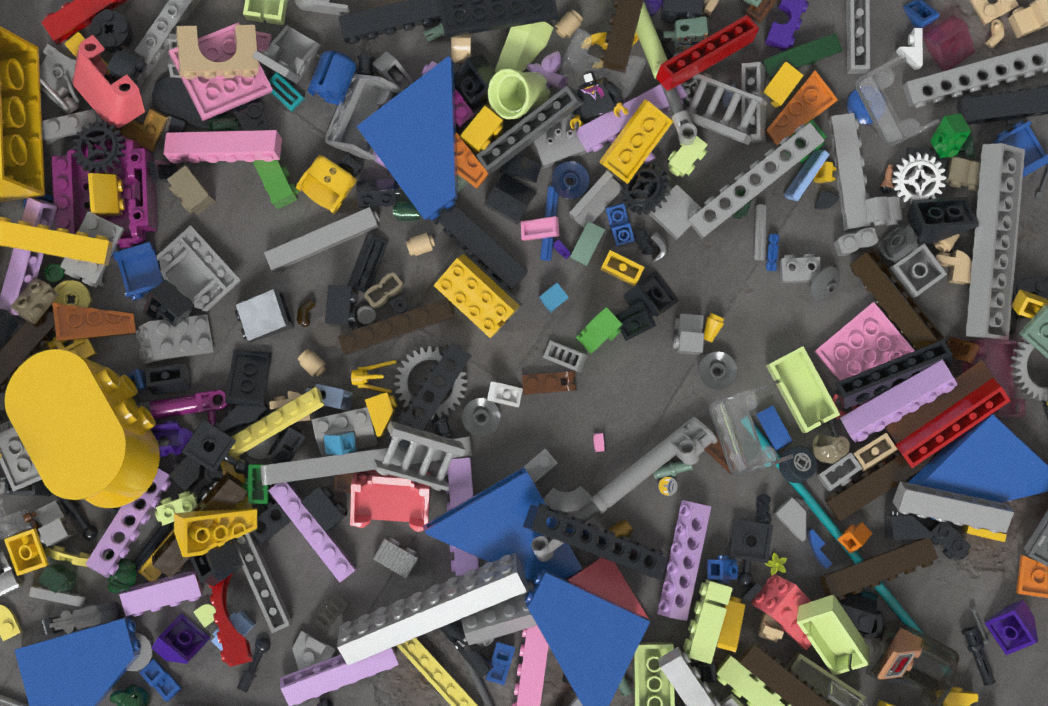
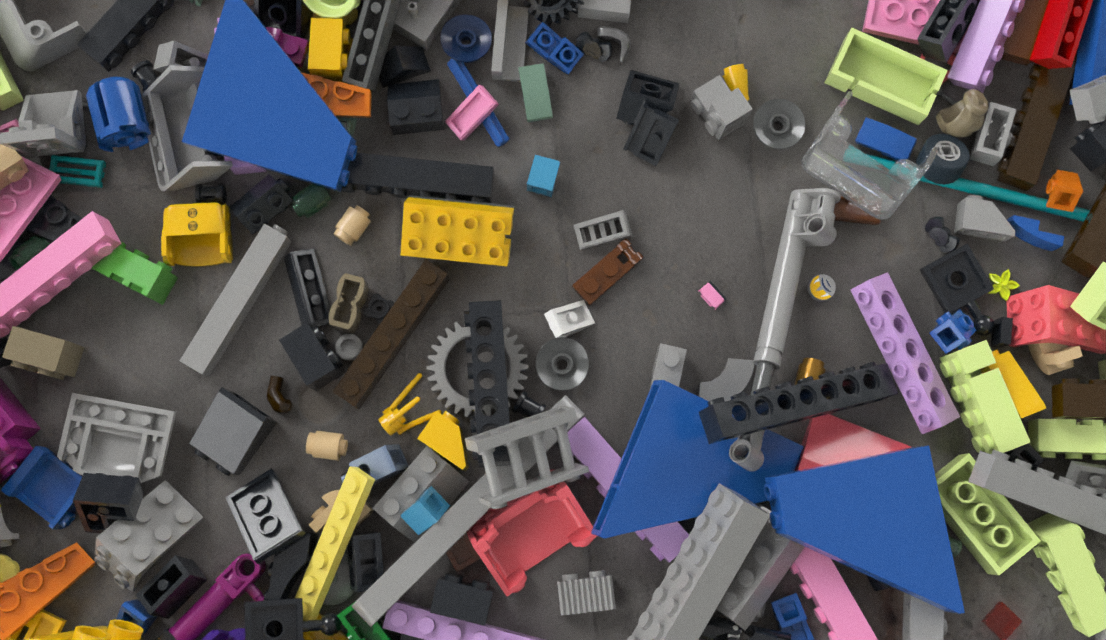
camera: 40 degrees left, 5 degrees down
(561, 249) = (512, 118): dark purple tile -> none
(600, 329) = (623, 166): bright green wedge -> none
(622, 268) = (594, 89): yellow brick -> none
(672, 469) = (813, 264): sand green pin -> none
(875, 452) = (1014, 82): tan brick -> none

